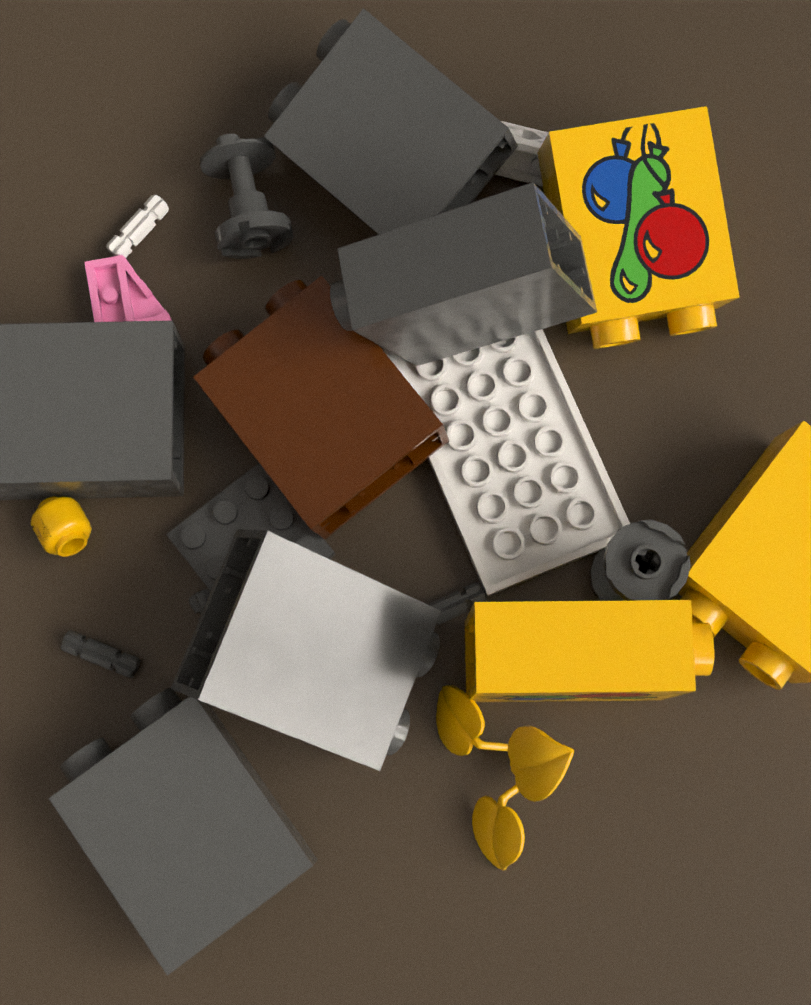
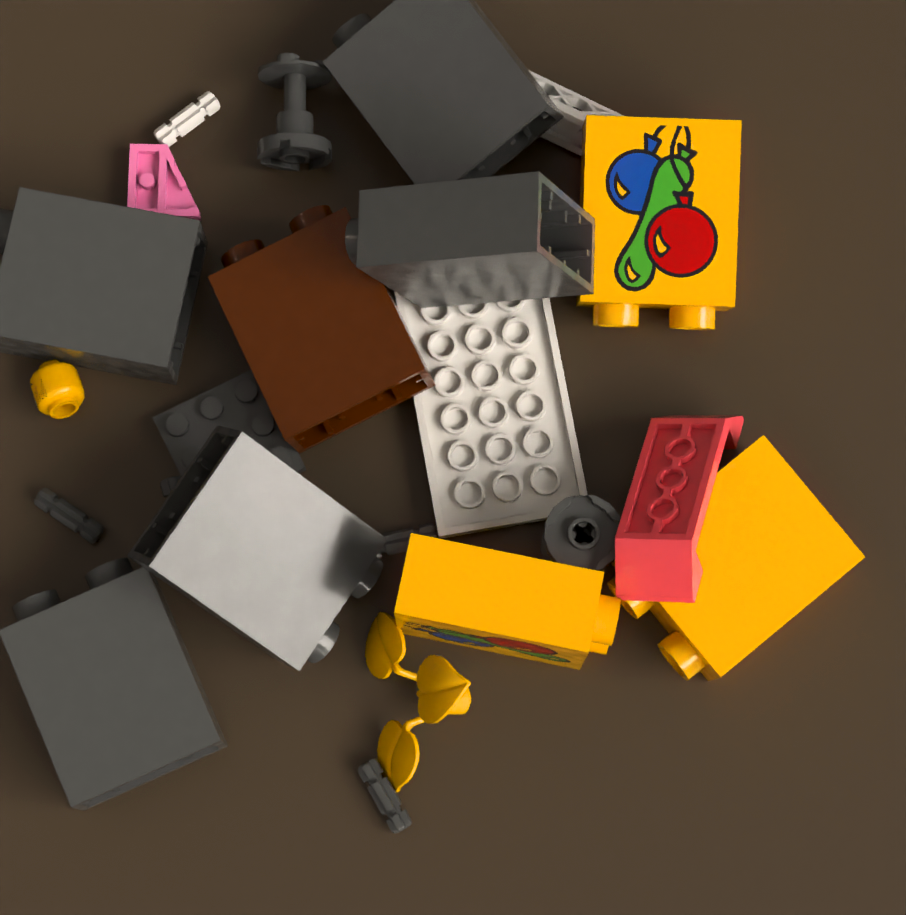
camera: 15 degrees right, 0 degrees up
(493, 877) = (384, 796): none -> dark grey axle
(730, 518) = (669, 505): none -> coral slope

